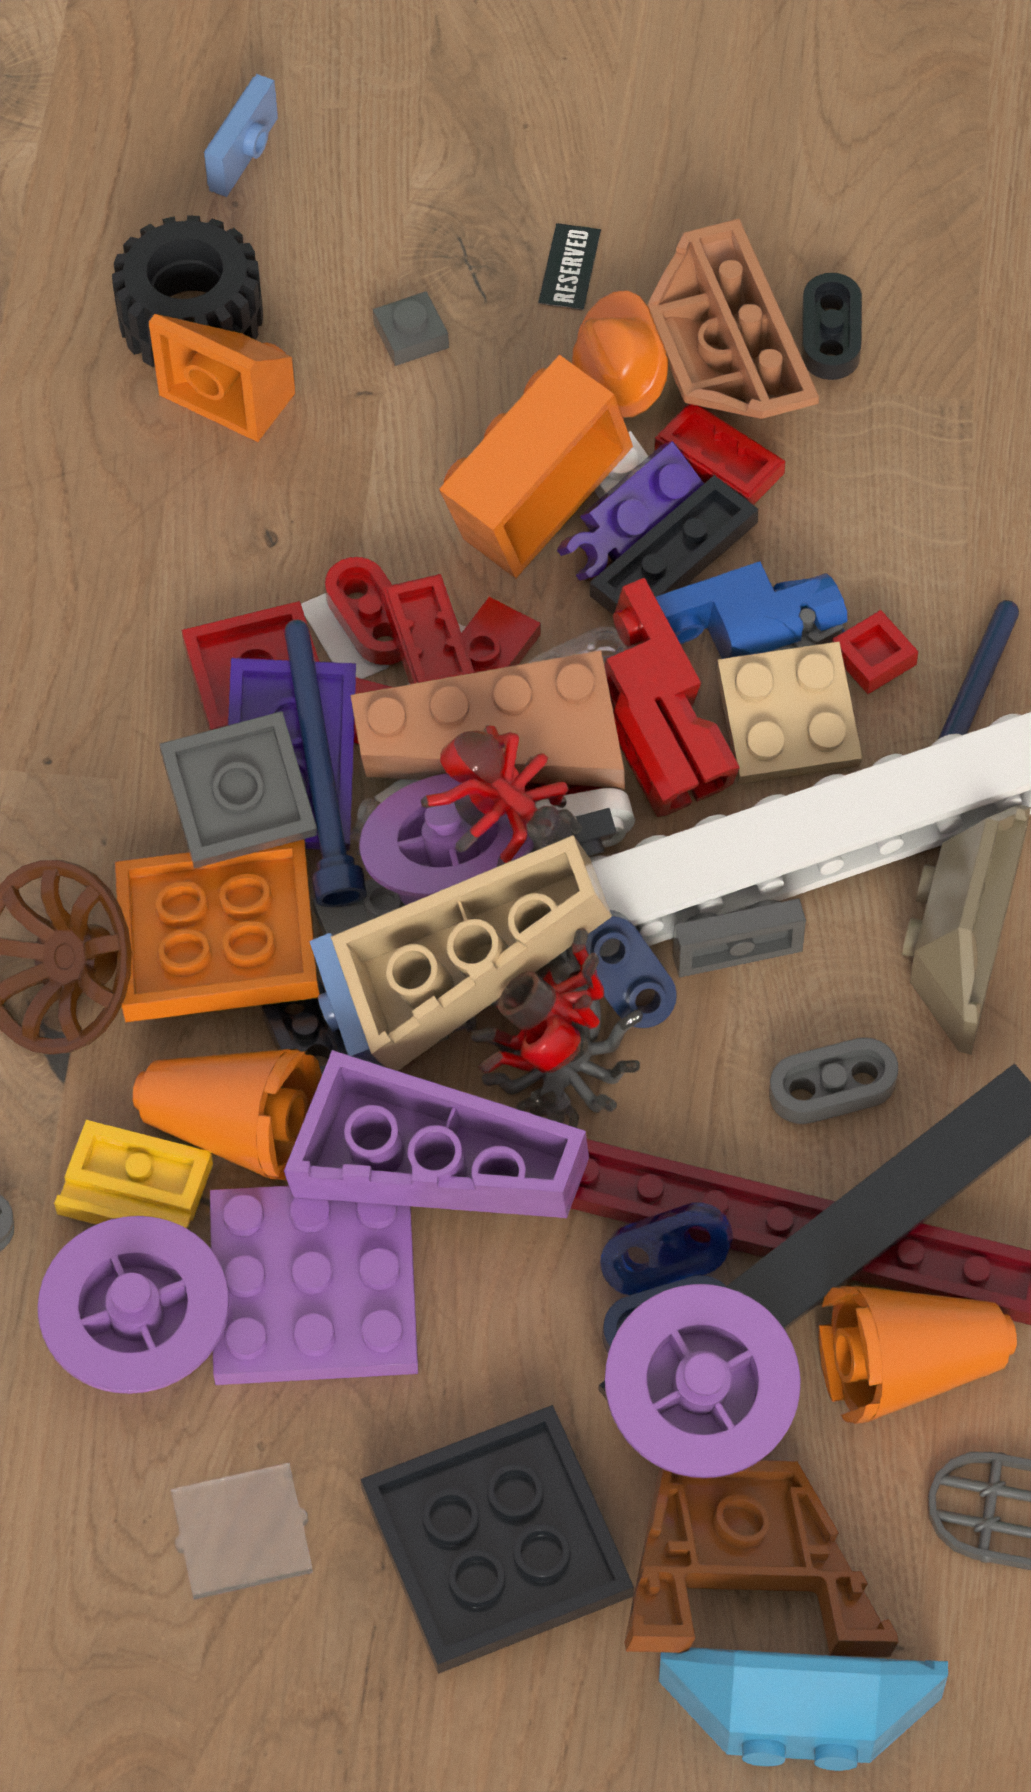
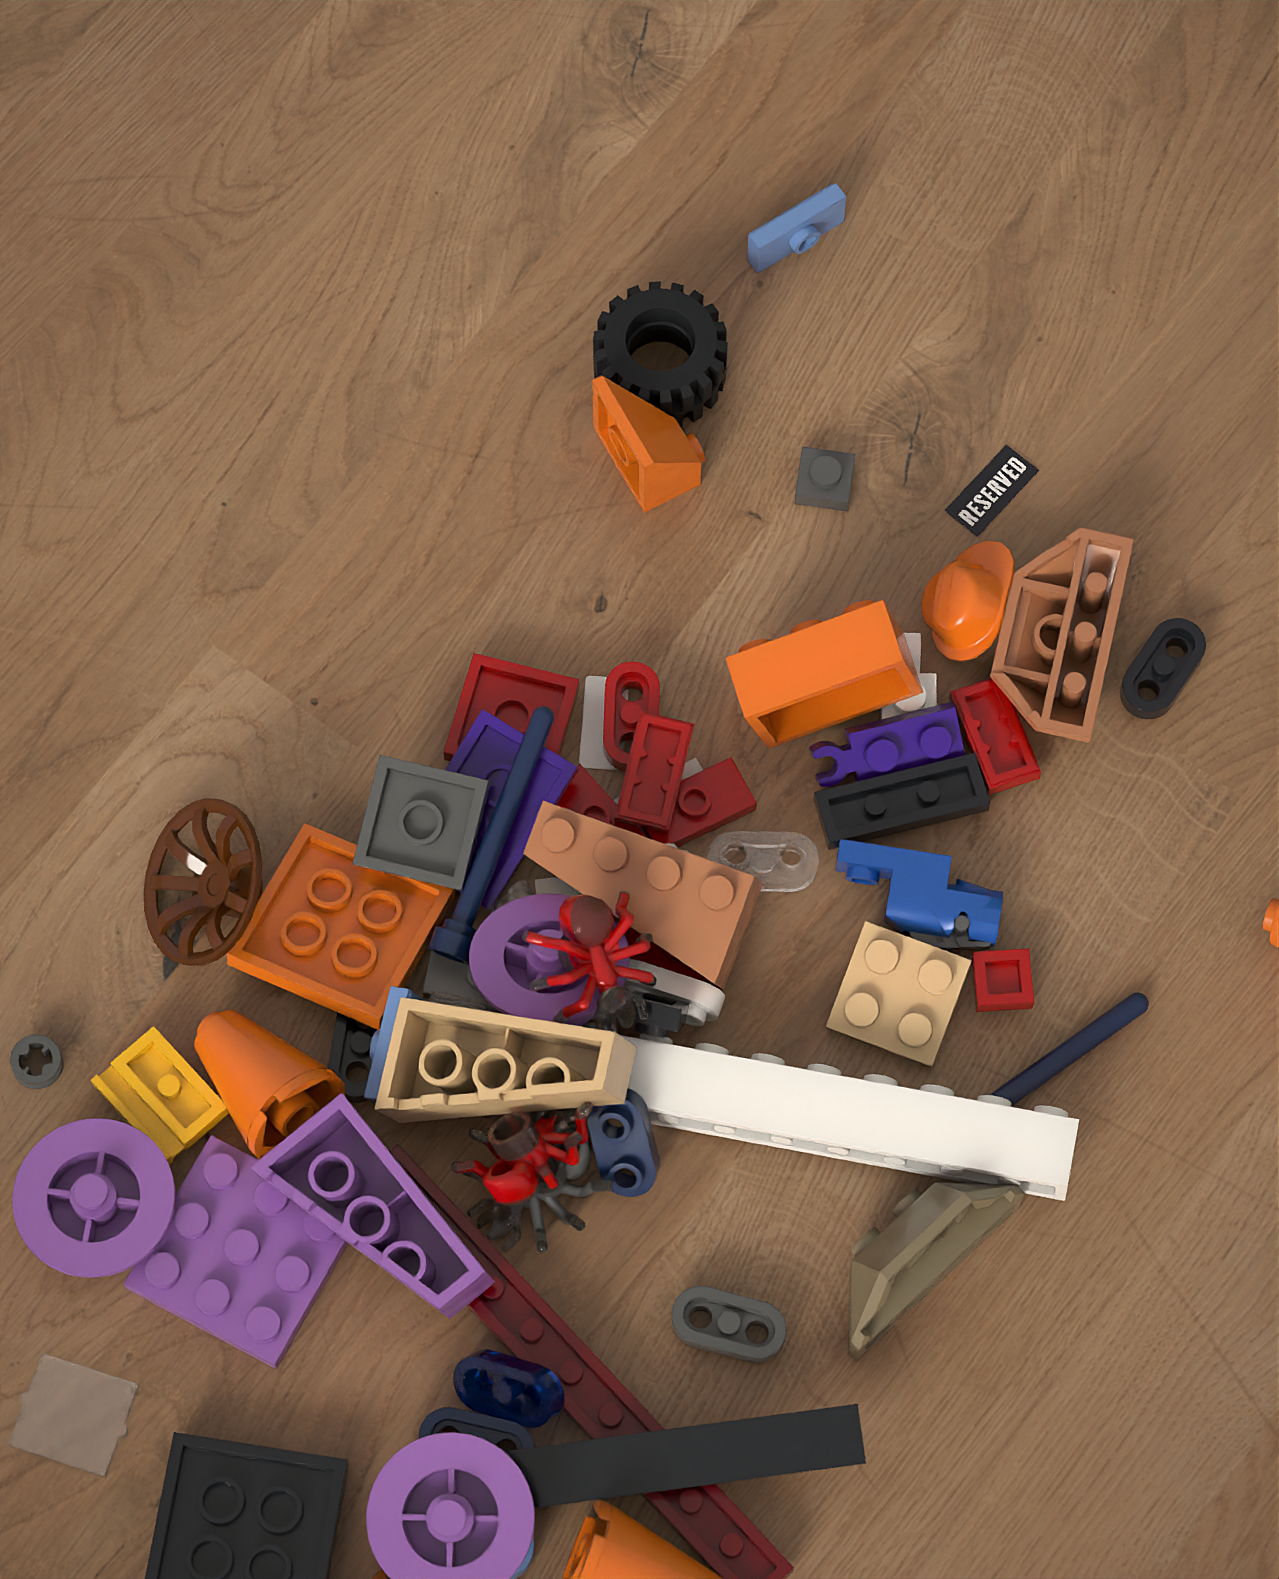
camera: 30 degrees right, 10 degrees up
(653, 709) = (804, 914): red plate -> none
(738, 937) = (712, 1155): dark grey plate -> none

